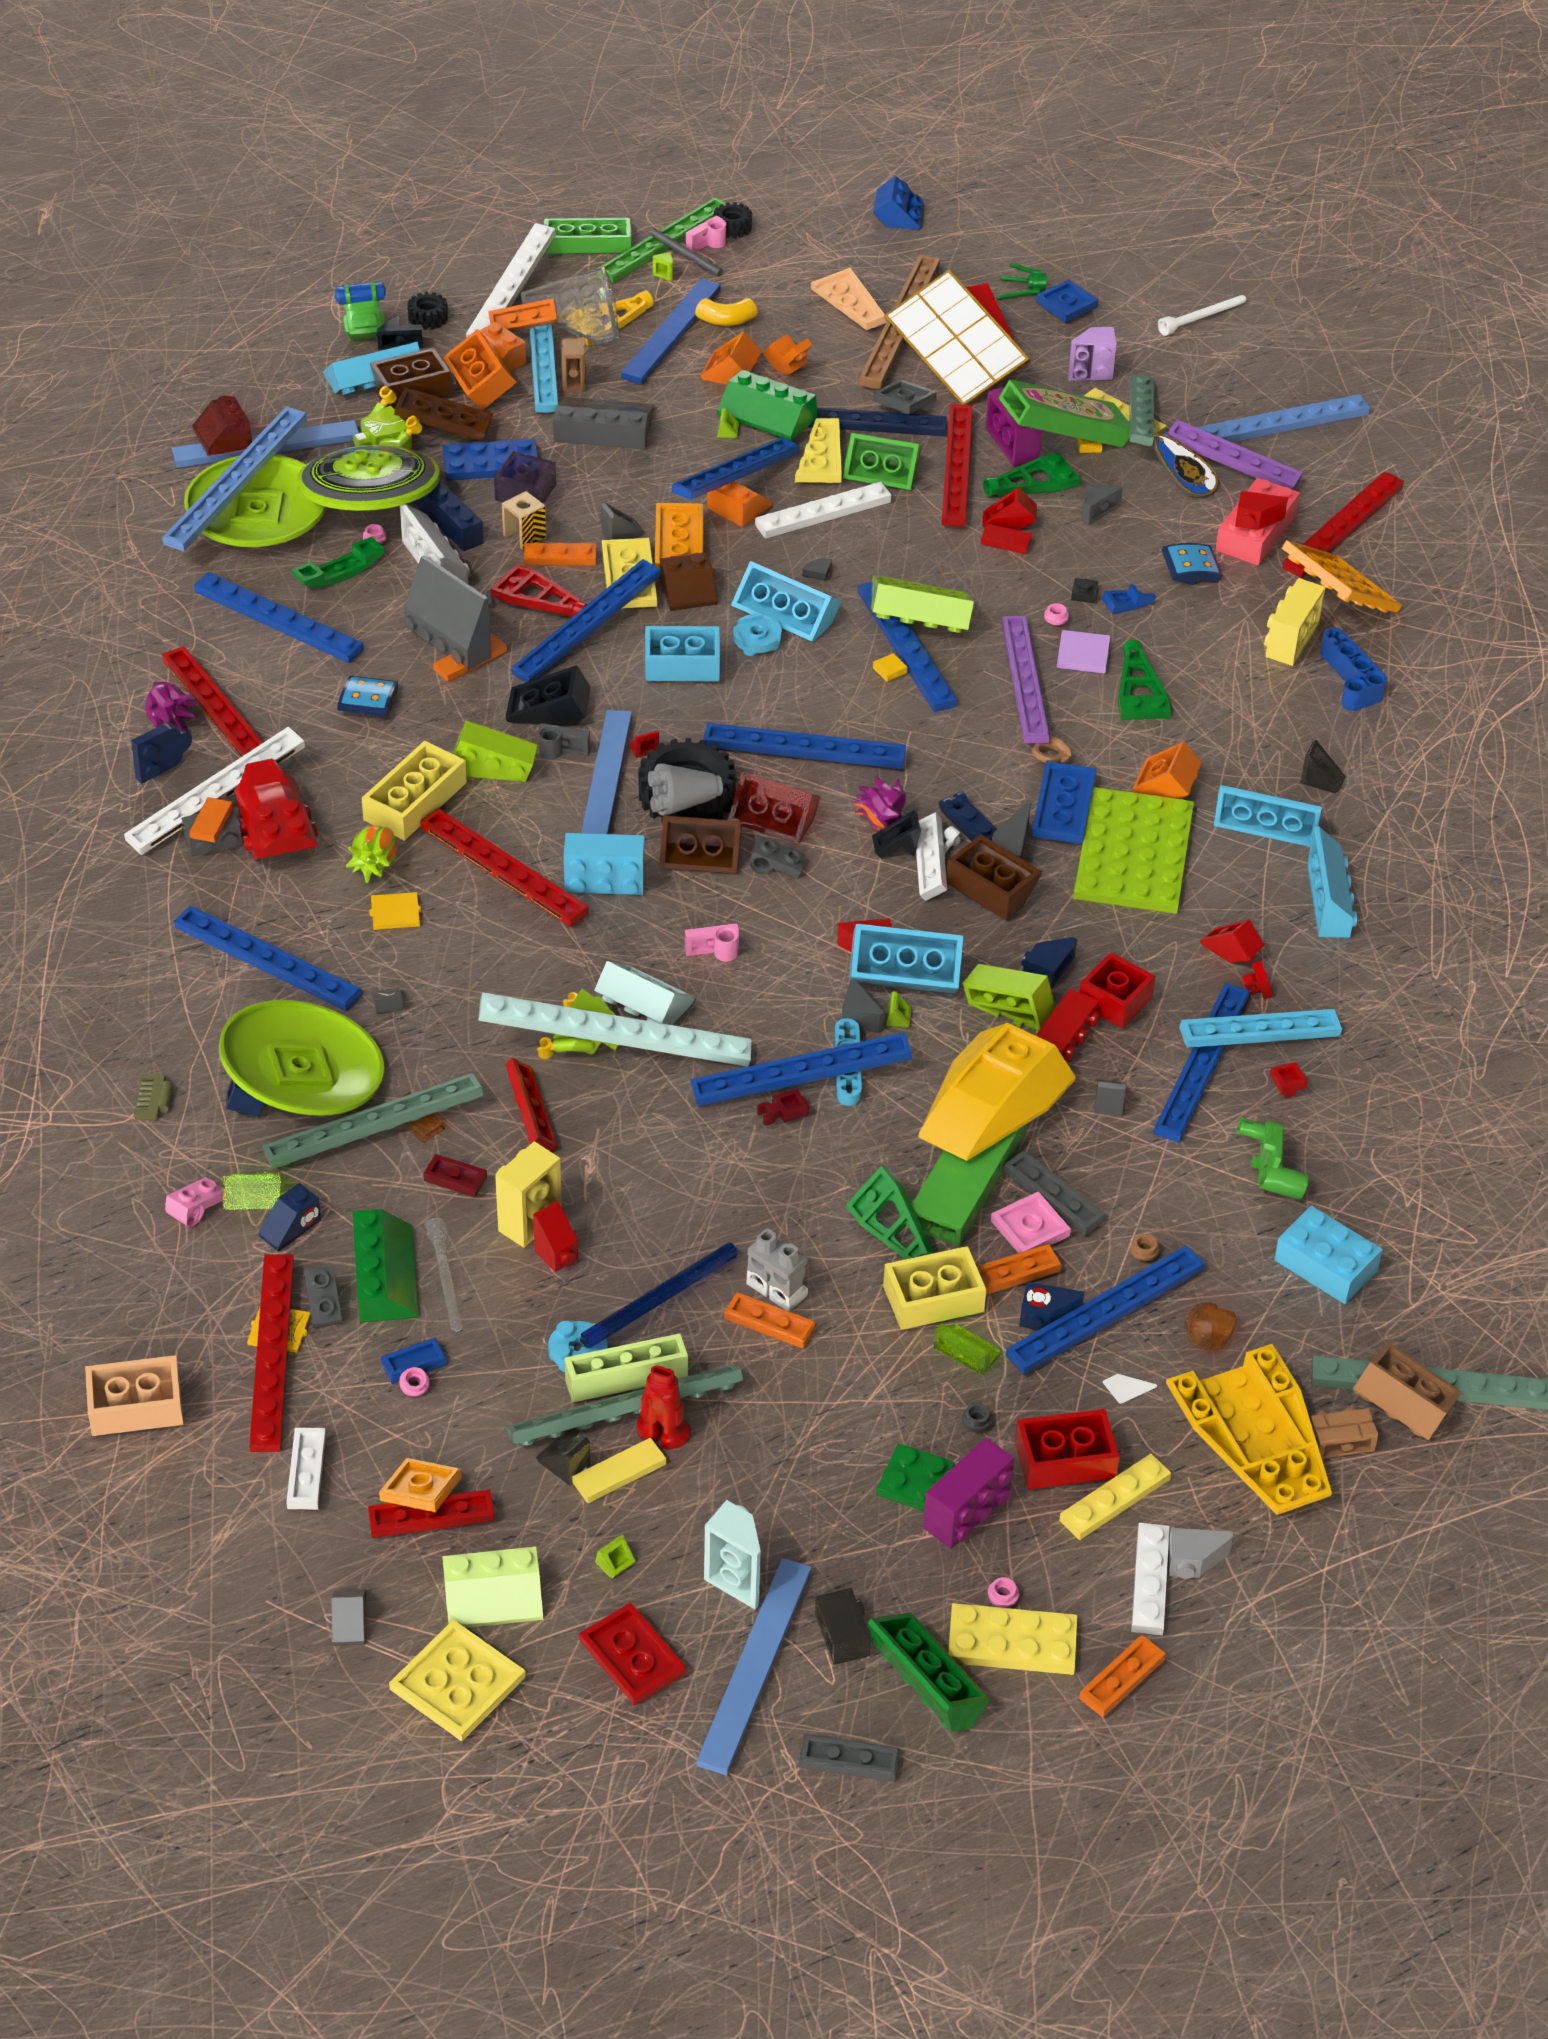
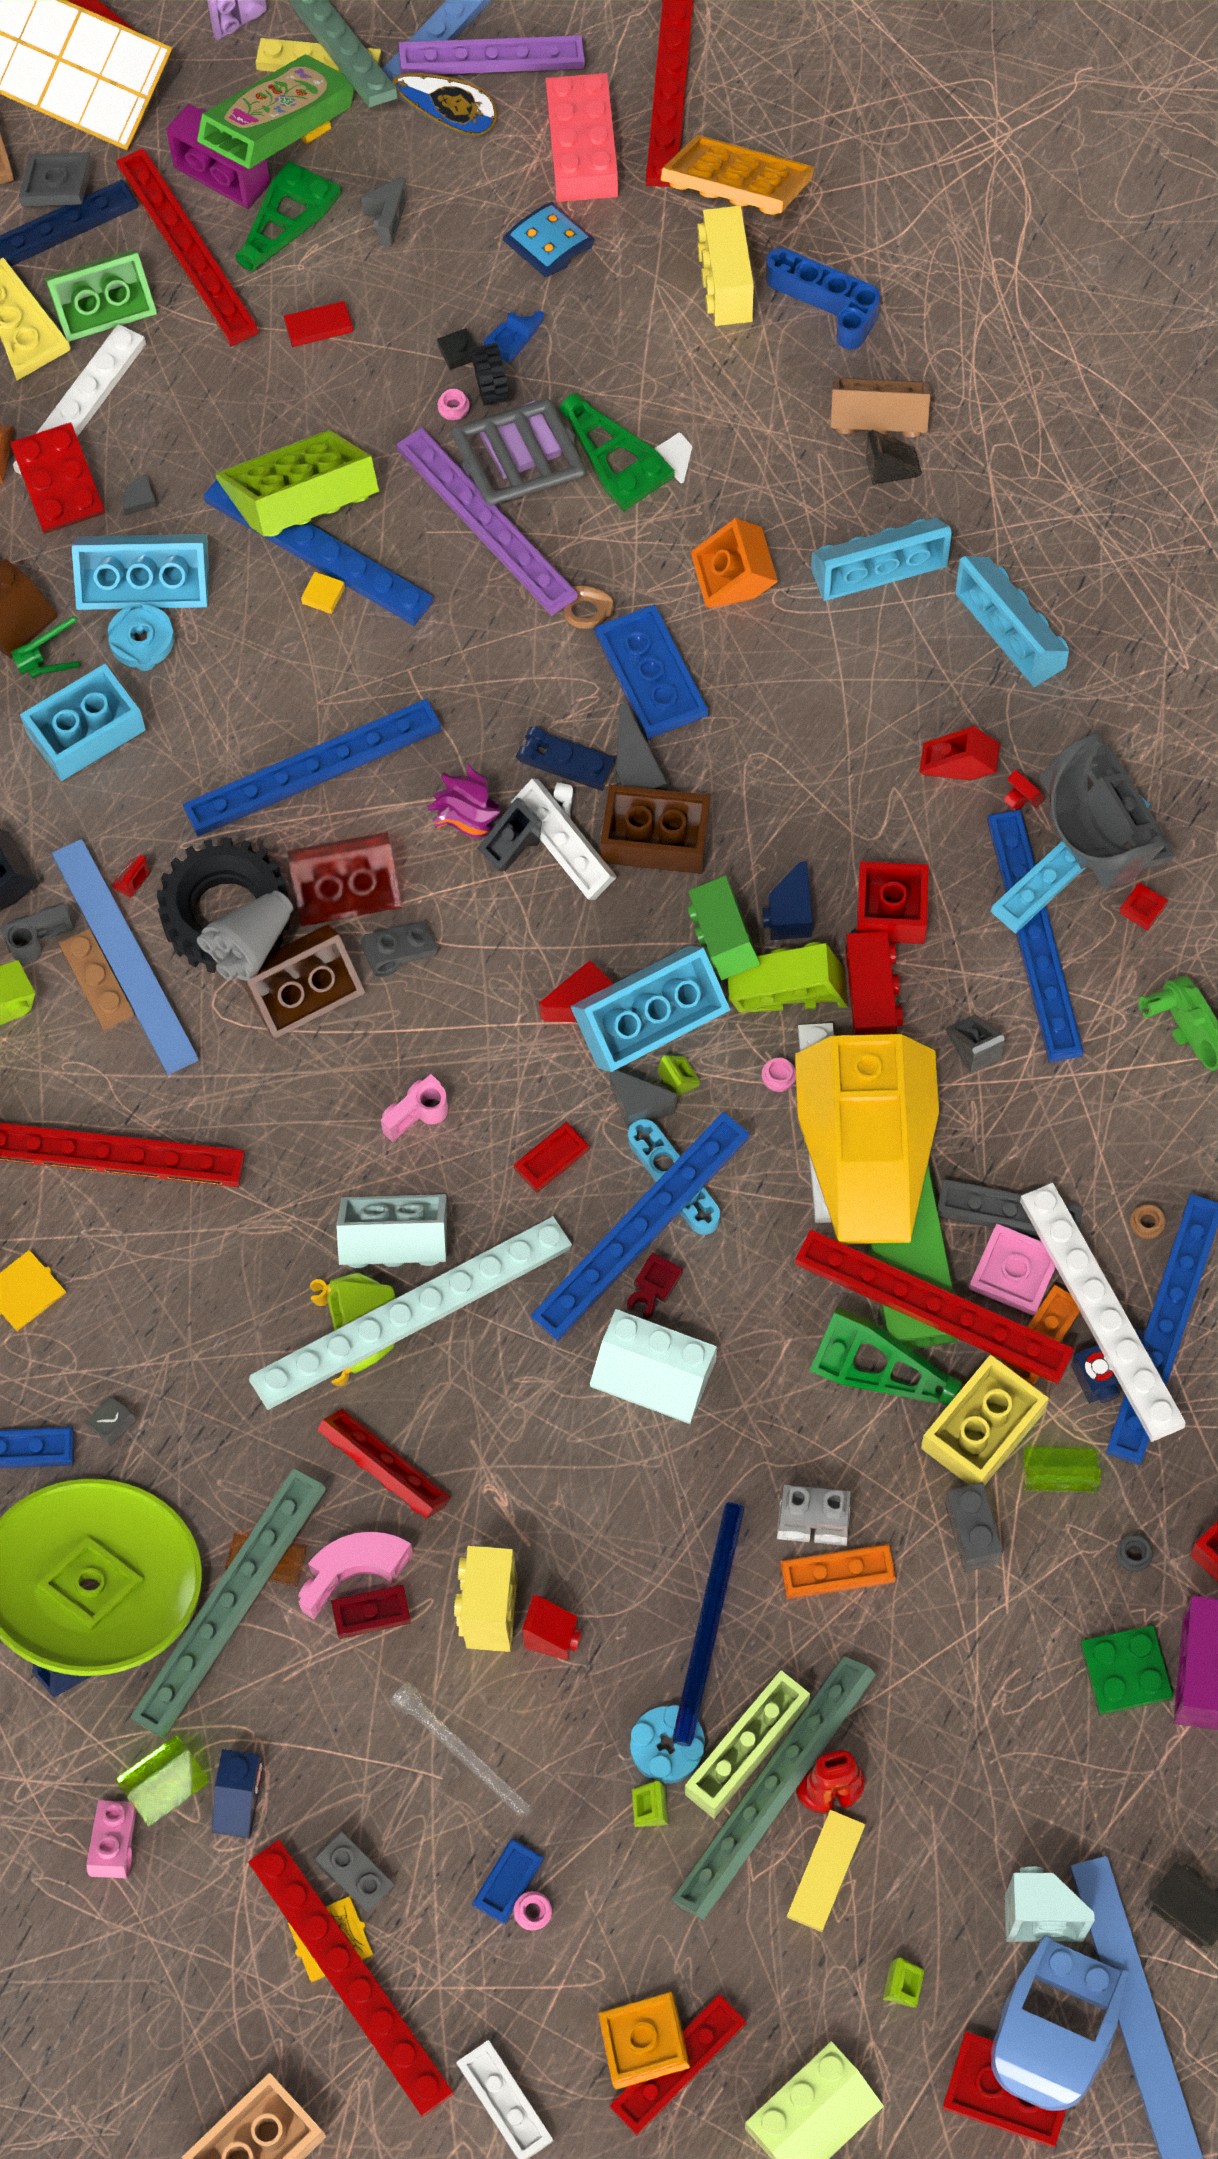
camera: 30 degrees left, 20 degrees up
(384, 1266) = (388, 1785): green slope -> none
(463, 1140) = (351, 1556): none -> bright pink arch
(539, 1372) = (650, 1805): none -> lime slope
(566, 1457) = (760, 1896): clear smoke slope -> none
(577, 784) = (96, 979): none -> medium nougat plate
(604, 863) = (223, 1084): medium azure brick -> none
(672, 1649) = (1041, 2058): none -> medium blue slope
(680, 610) = (28, 656): none -> green plant
(746, 1146) = (653, 1366): none -> light aqua slope
(775, 534) = (57, 478): none -> red plate
(778, 1012) = (551, 1157): none -> red tile
(878, 1340) = (973, 1527): none -> dark grey brick
(953, 1203) = (934, 1306): none -> red plate
(961, 1041) = (778, 1074): none -> bright pink plate
(990, 943) = (722, 928): none -> bright green brick
(1011, 511) = (299, 285): red slope -> none
(1065, 1269) = (1102, 1312): none -> white plate
(1090, 605) = (490, 374): none -> black tyre
(1090, 637) = (518, 487): none -> dark grey bar
(1134, 850) = (768, 690): lime plate -> none
(1180, 707) = (676, 453): none -> white sticker
(1260, 510) = (590, 133): red slope -> none
(1294, 1013) = (1110, 822): none -> dark grey piece
(1338, 741) = (880, 406): none -> medium nougat slope

